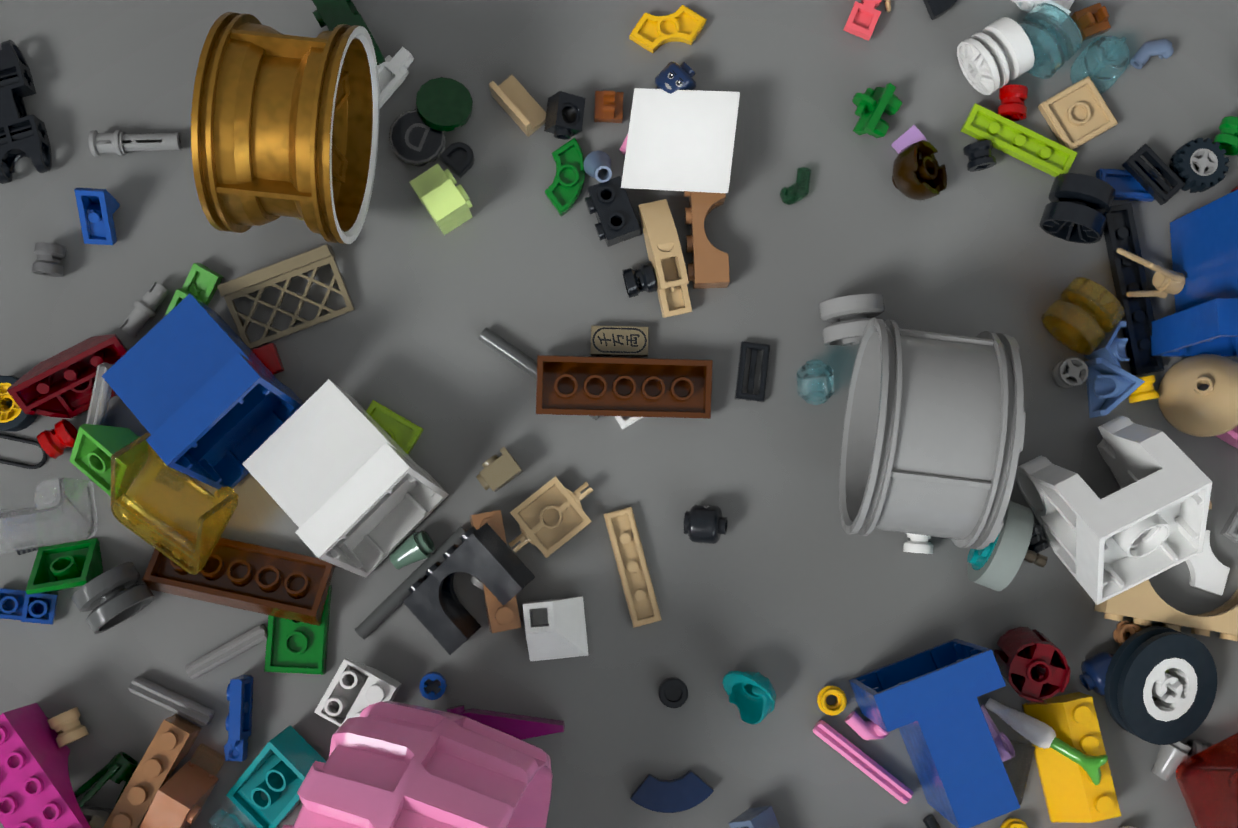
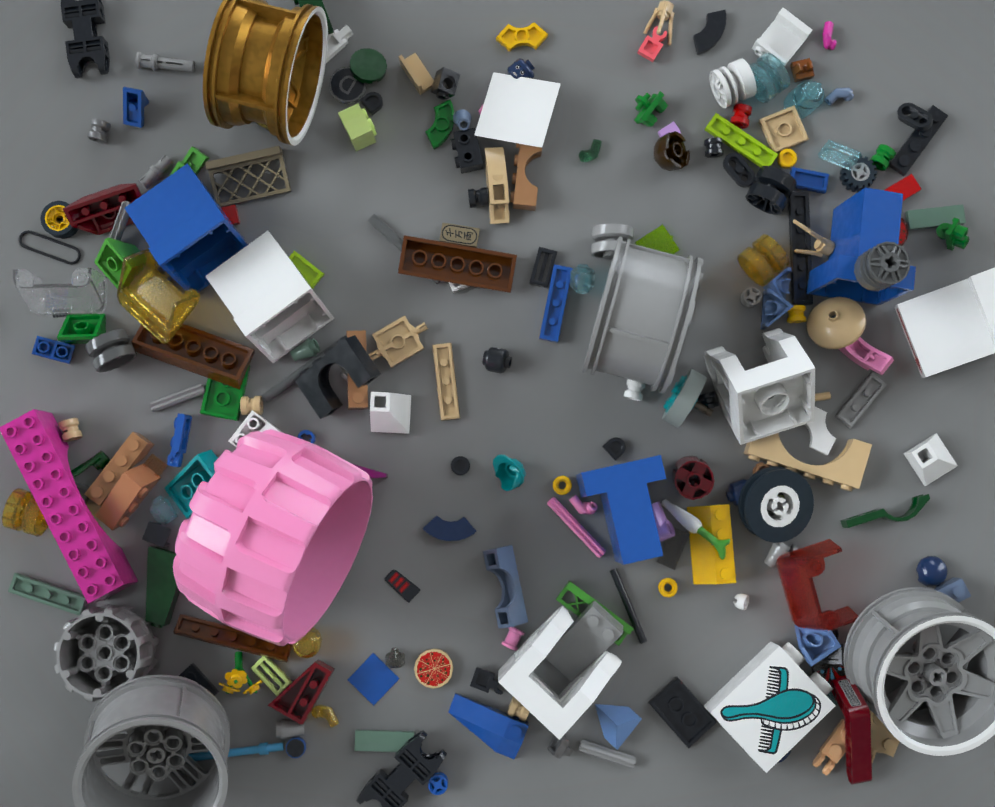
camera: 15 degrees right, 0 degrees up
(58, 439) = (89, 246): red wheel -> none
(171, 701) = (138, 423): light grey axle -> none
(342, 647) = (248, 404): none -> tan wheel
(498, 471) = (368, 307): dark tan brick -> none
(608, 106) = (475, 82): dark orange tile -> none
(780, 424) = (555, 303): none -> blue plate
(901, 630) = (615, 447): none -> black tile
(918, 310) = (659, 240): none -> clear neon green piece
(1023, 181) = (740, 169): none -> black plate
(1089, 157) = (787, 158): none -> yellow tile
(1150, 178) = (821, 180): black tile -> none
(1167, 145) = (837, 157): none -> clear light blue tile

